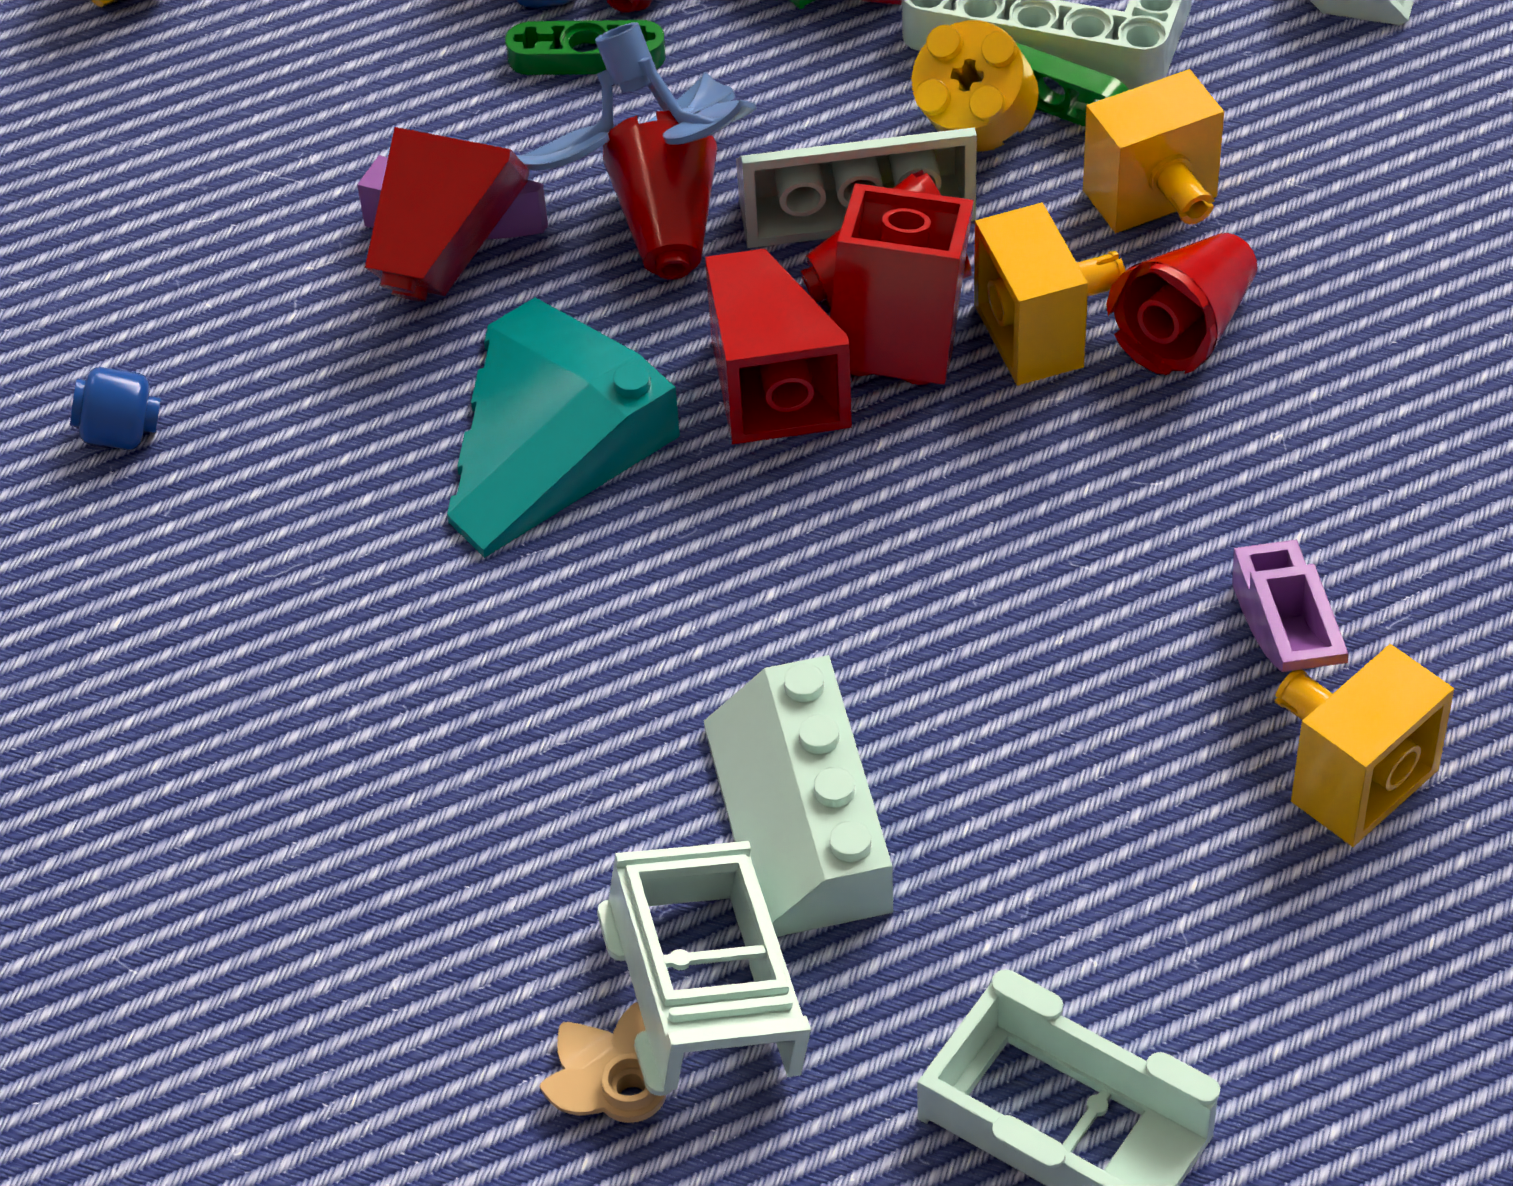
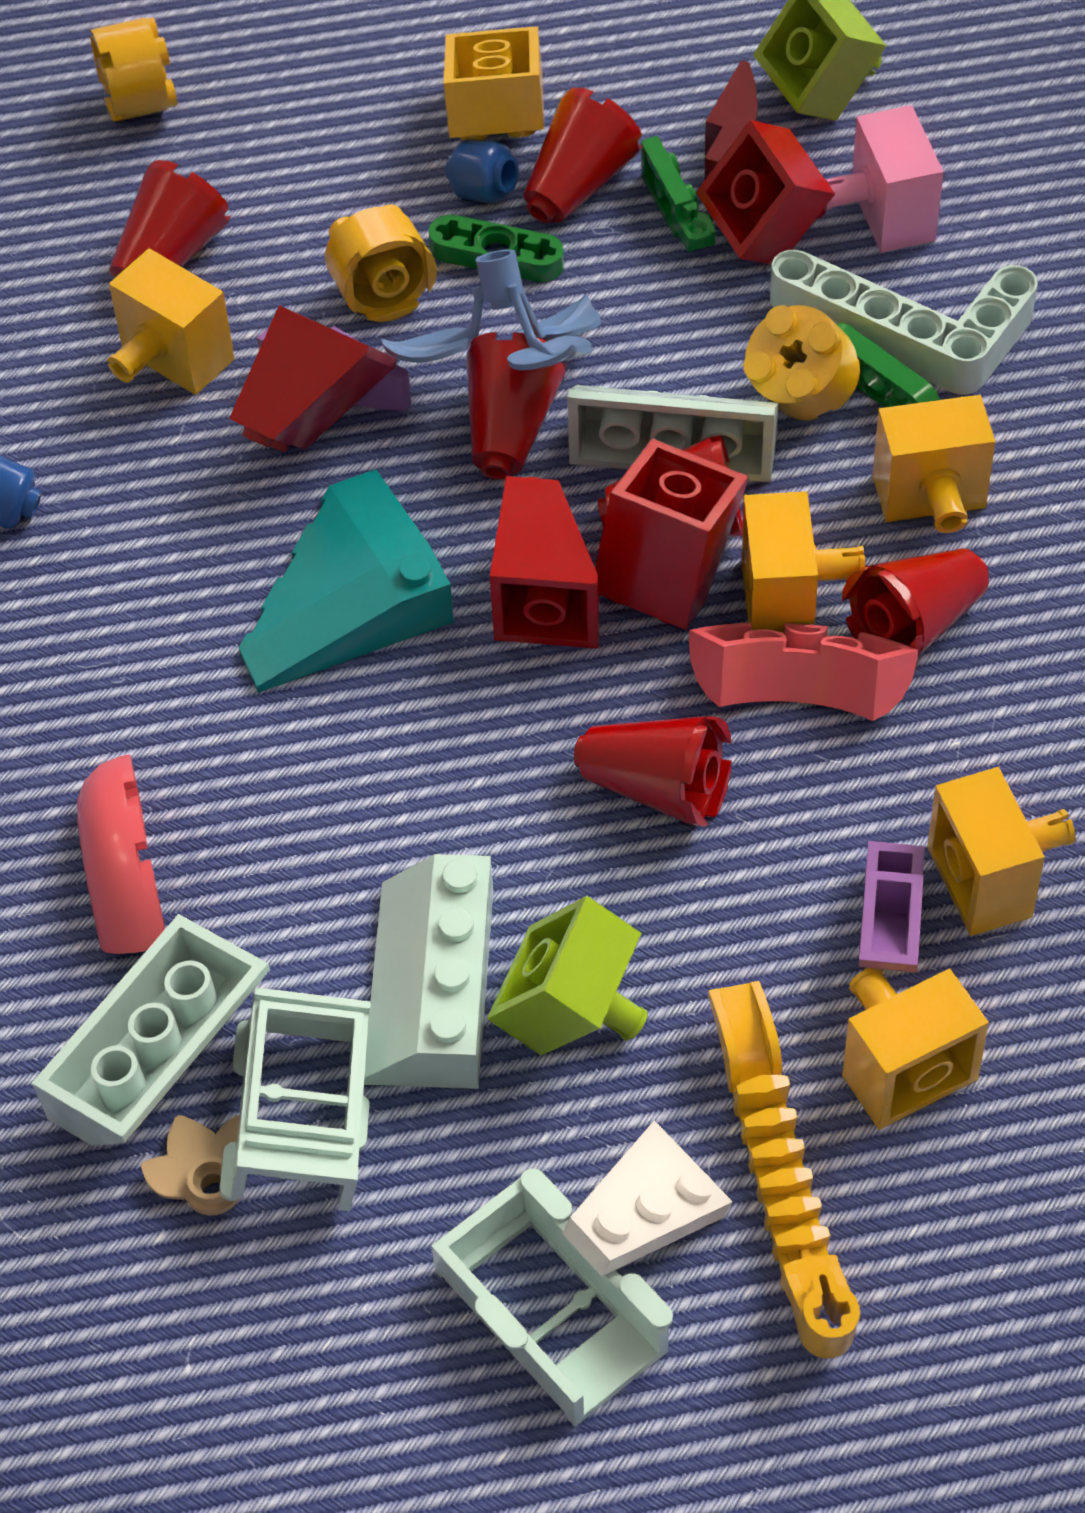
camera: 15 degrees right, 5 degrees up
(209, 94) = (170, 217): none -> red cone
(252, 190) = (169, 323): none -> yellow brick
(384, 746) = (118, 883): none -> coral brick
(467, 81) = (379, 262): none -> yellow brick
(504, 938) = (146, 1033): none -> light aqua slope
(964, 762) = (569, 979): none -> lime brick
(972, 522) = (661, 764): none -> red cone
(1089, 392) = (801, 667): none -> coral brick
(1138, 979) = (644, 1204): none -> white wing
(1370, 525) = (990, 850): none -> yellow brick
(1375, 1035) = (776, 1159): none -> yellow piece

